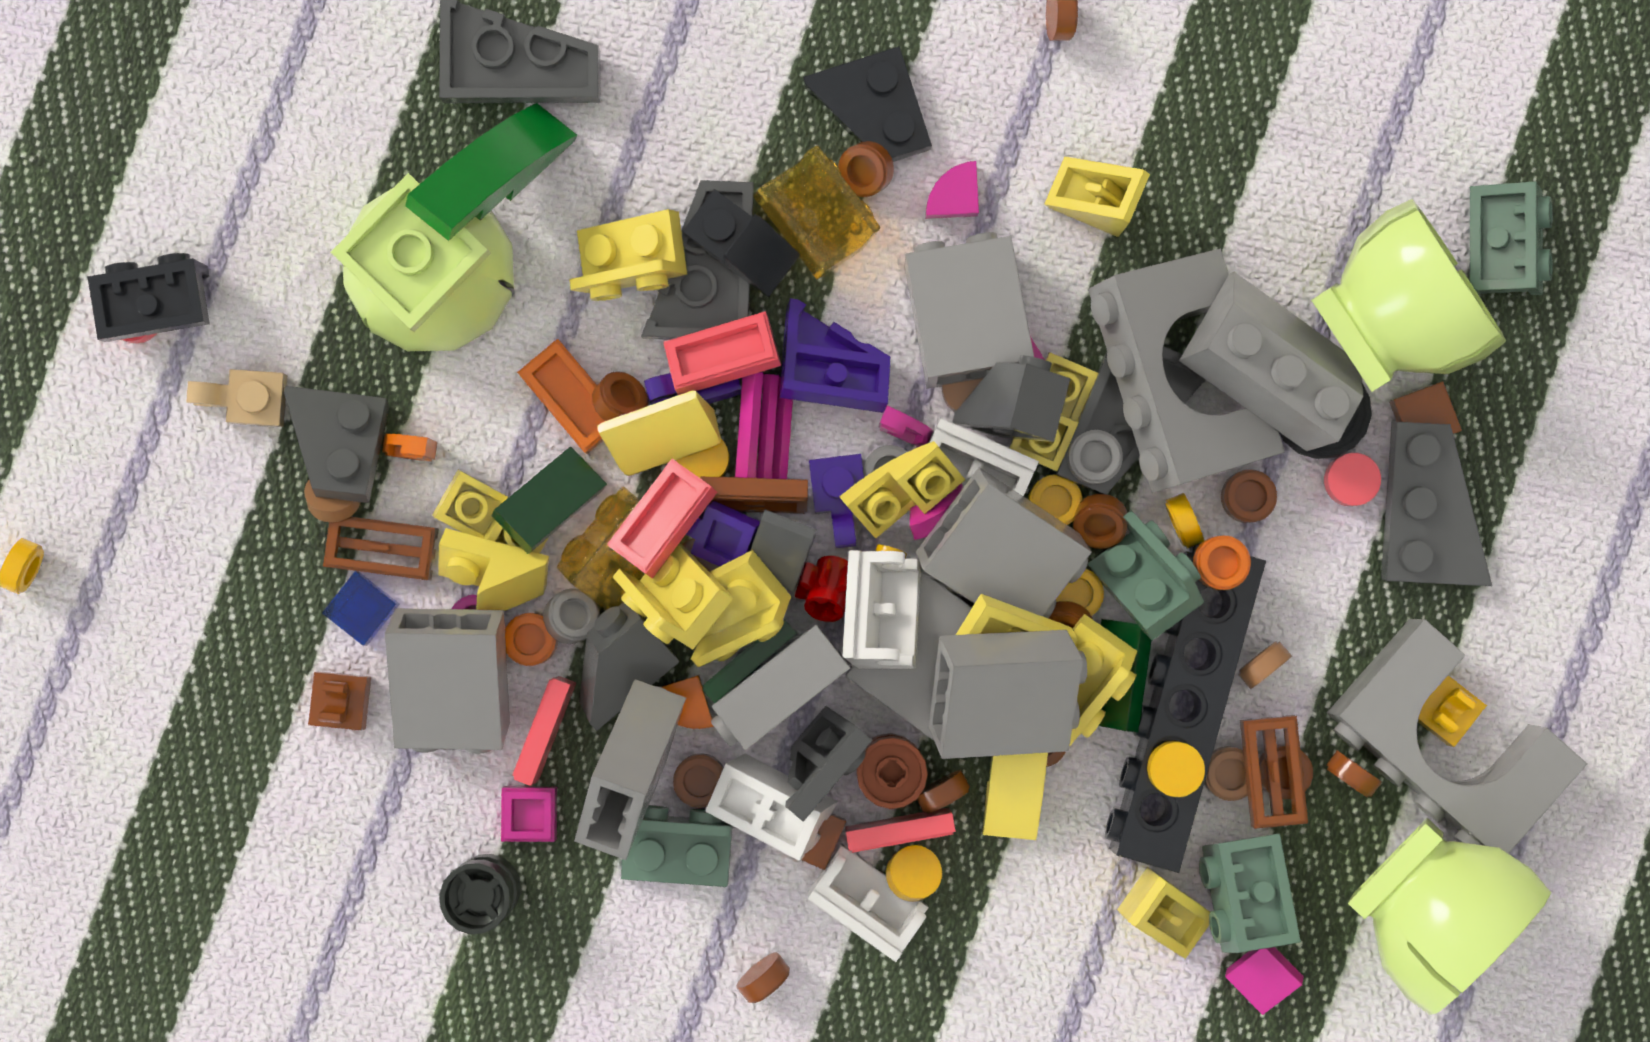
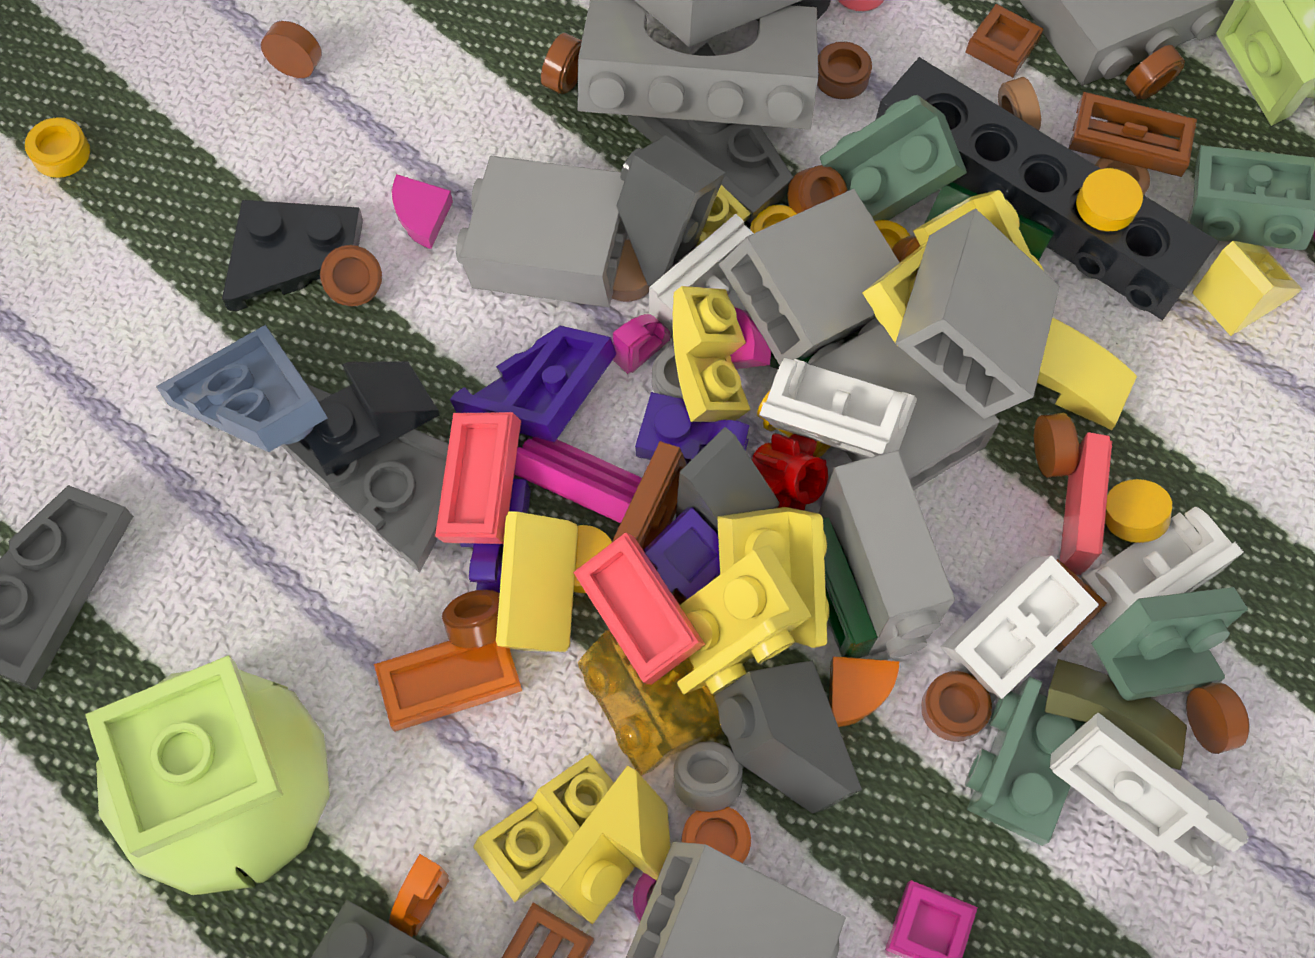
camera: 70 degrees left, 20 degrees down
(489, 170) = (139, 642): green slope -> none
(543, 730) = (836, 862): coral tile -> none
(549, 500) = (560, 744): dark green tile -> none
(629, 769) = (933, 752): light grey brick -> none
(630, 253) = (319, 540): light yellow bracket -> none
(674, 939) = (1145, 794): none -> white hinge
(723, 145) = (248, 393): none -> sand blue wing
(734, 916) = (1083, 692): none -> olive slope
(796, 925) = (1166, 642): none -> sand green bracket
(818, 212) = (371, 324): clear yellow bracket -> none
(821, 757) = (986, 533): dark grey wing -> none
(892, 771) = (1017, 482): copper wheel -> none
(1094, 457) = (751, 169): light grey tile -> none
(1097, 193) = (488, 76): light yellow slope -> none
(1142, 252) = (561, 64): none -> dark orange tile
(1184, 521) = (844, 118): yellow tile -> none
(1222, 562) = (905, 79): orange tile -> none
(1342, 629) = (1004, 40): none -> dark orange tile

